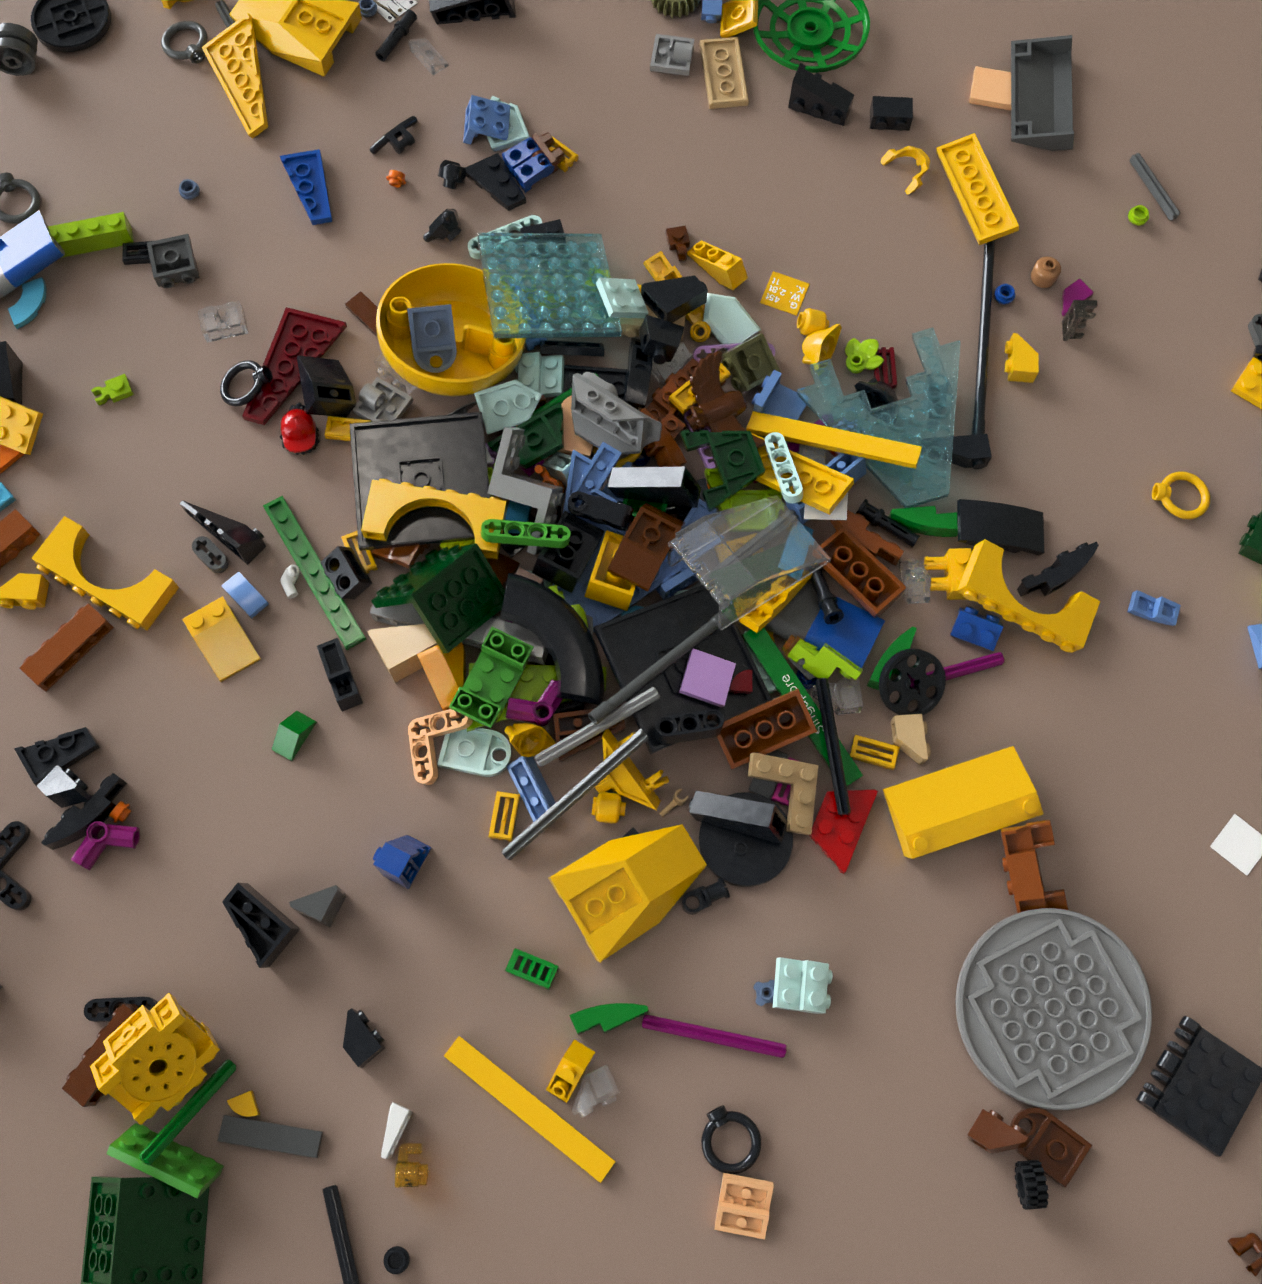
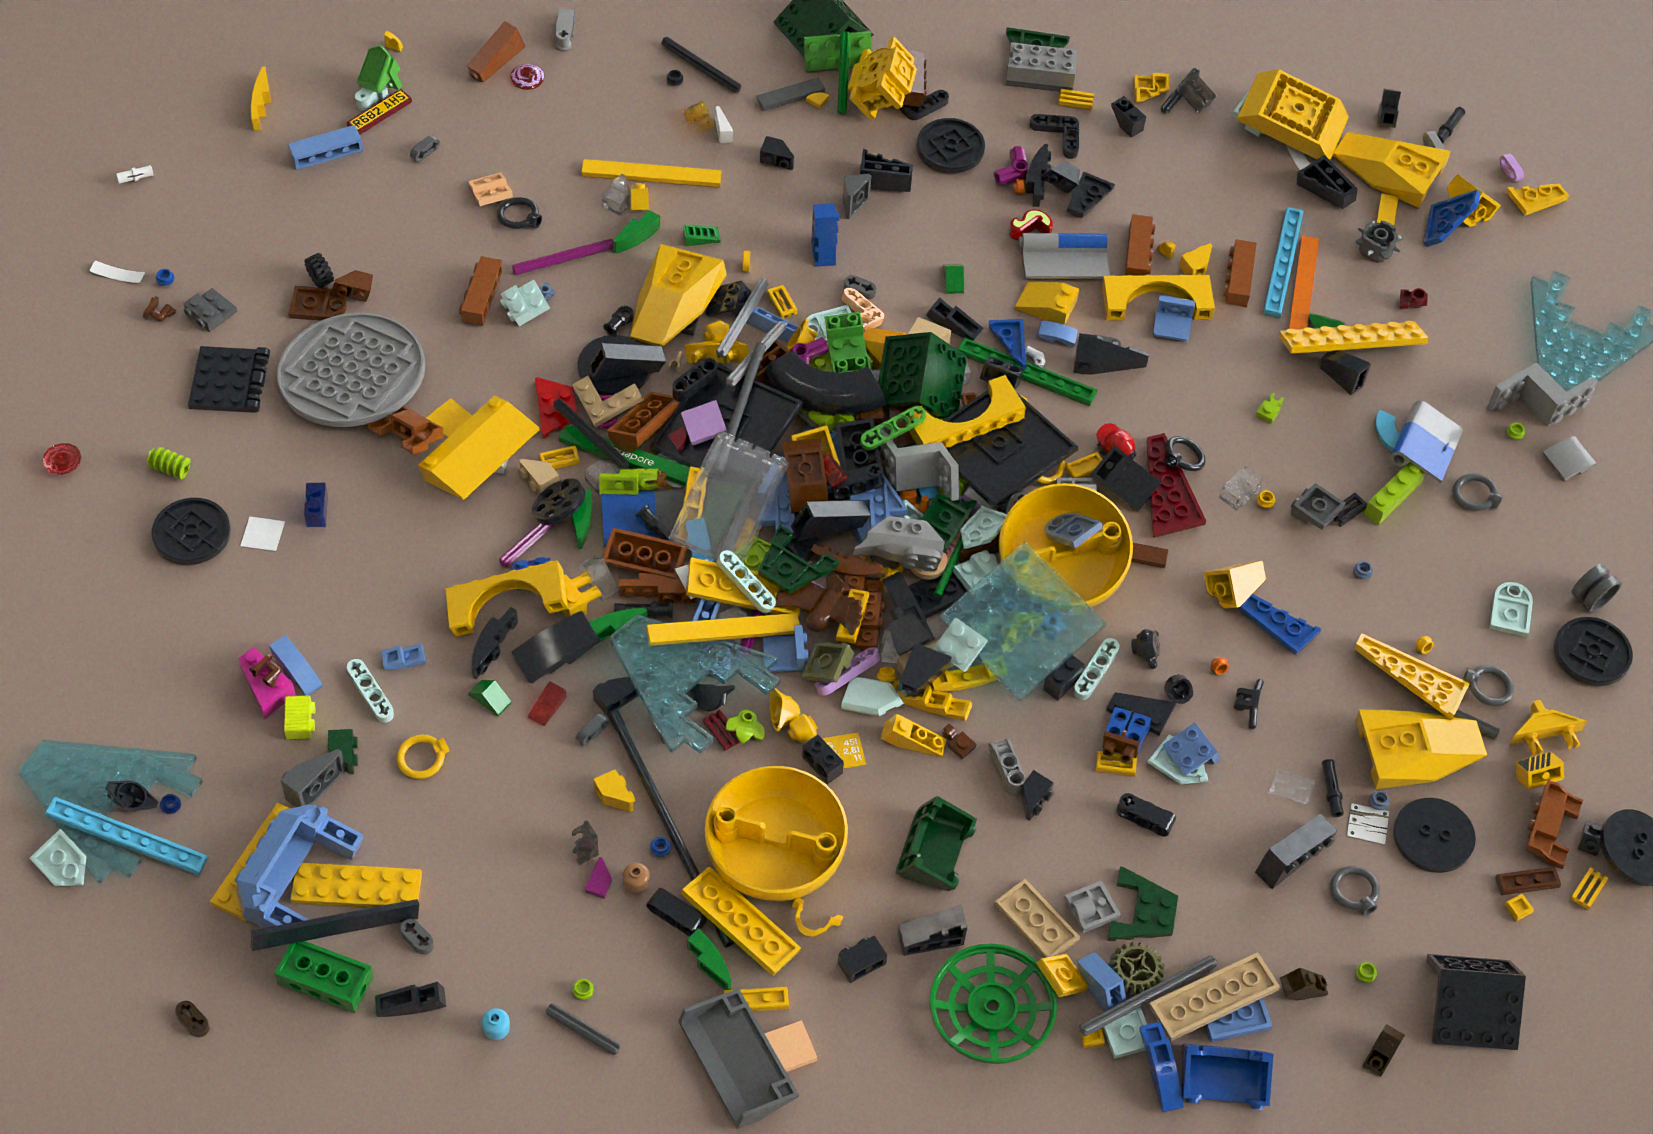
camera: 145 degrees right, 15 degrees down
(39, 629) = (1167, 249): none -> yellow tile
(98, 89) = (1511, 612): none -> light aqua tile
(115, 537) = (1173, 318): none -> medium blue bracket
(146, 924) = (950, 145): none -> black plate
(154, 685) = (1064, 255): none -> light grey door
(154, 753) = (1031, 220): none -> red animal
(204, 99) = (1424, 644): none -> yellow plate
(208, 296) = (1266, 495): none -> yellow plate
(296, 616) = (1011, 335): none -> blue wing
(315, 234) = (1234, 583): none -> yellow slope
(400, 786) = (861, 286): none -> dark grey beam
(509, 891) = (746, 261): none -> yellow tile
(563, 843) = (728, 298): none -> black bracket
(569, 96) = (1146, 814): none -> black piece
(622, 517) = (833, 471): none -> clear red slope
(625, 29) = (1153, 909): none -> dark green wing
(648, 160) = (1035, 792): none -> black slope
(656, 184) = (1003, 754): none -> light grey piece
(774, 164) = (935, 844): none -> dark green windscreen
(814, 284) = (822, 759): none -> black brick
(844, 1033) = (481, 290): none -> dark orange brick
(906, 229) = (776, 833): none -> yellow cylinder
(965, 879) = (449, 416): none -> yellow sticker
(993, 135) = (766, 998): none -> yellow tile
(1007, 429) = (592, 729): none -> dark grey beam
(1019, 179) = (709, 959): none -> green slope
(1029, 237) = (676, 912): none -> black beam
(1035, 481) = (547, 703): none -> clear red slope
(1089, 520) = (490, 696): none -> slope
(1168, 843) = (316, 505): none -> clear blue brick
(1187, 1213) = (209, 309): none -> dark grey plate
(1200, 590) = (370, 690): none -> light aqua beam
(1231, 220) = (495, 1024): none -> medium azure head

